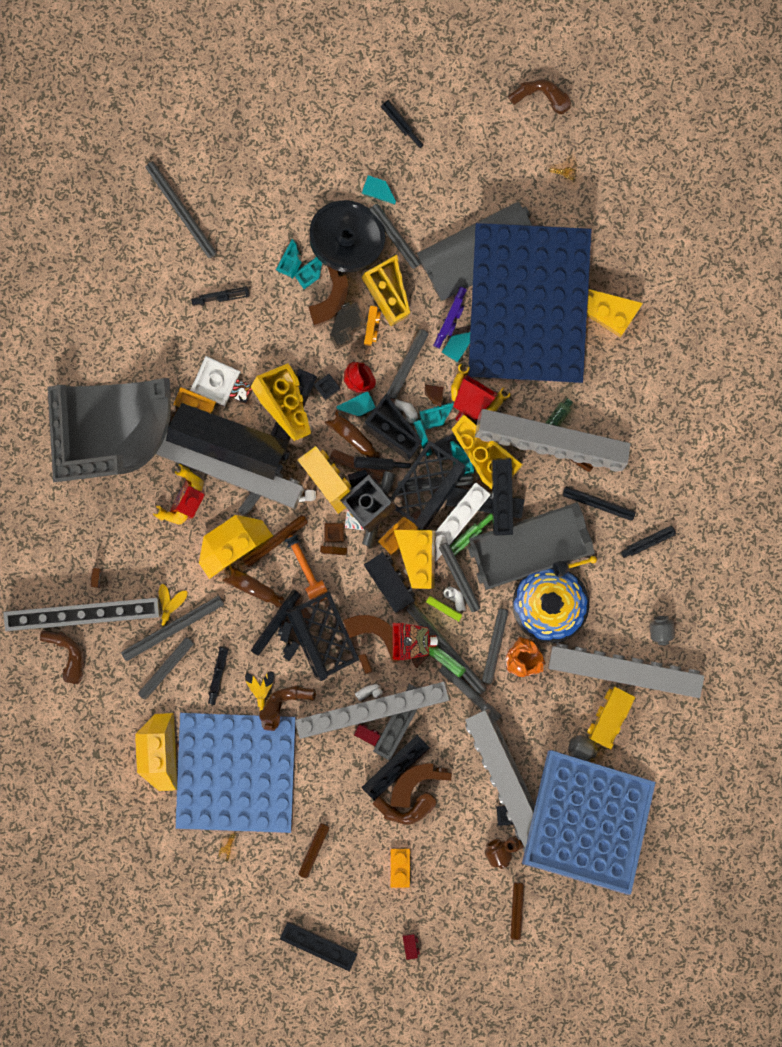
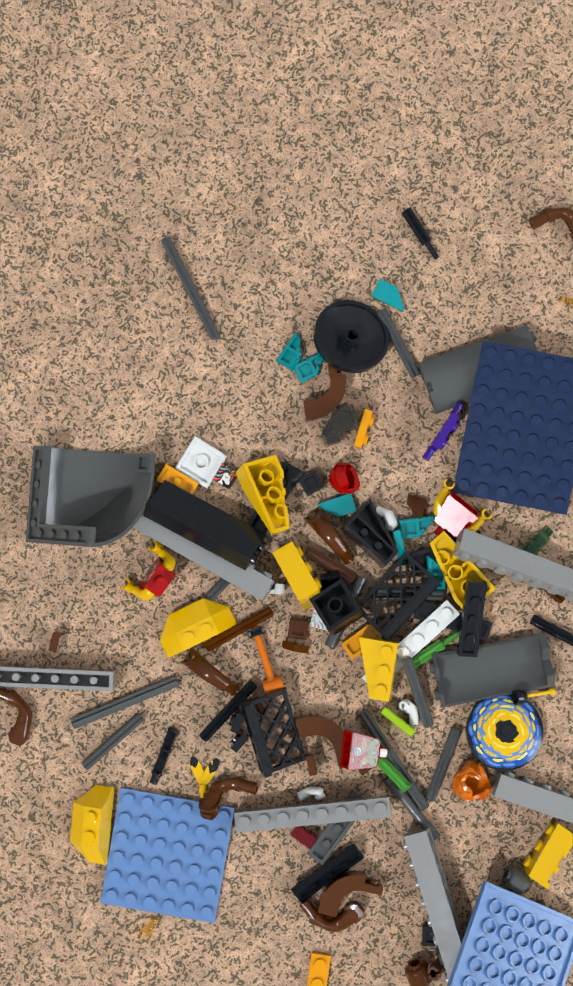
camera: 10 degrees right, 0 degrees up
(167, 605) = (123, 679): yellow piece -> none
(221, 296) = (218, 379): black piece -> none
(313, 850) = (234, 944): reddish brown axle -> none
(378, 463) = (351, 566): black axle -> none
(388, 290) = (385, 396): yellow wedge -> none
(390, 582) = (347, 687): black wedge -> none
(407, 363) = (394, 471): dark grey axle -> none
(457, 346) = (445, 460): teal tile -> none

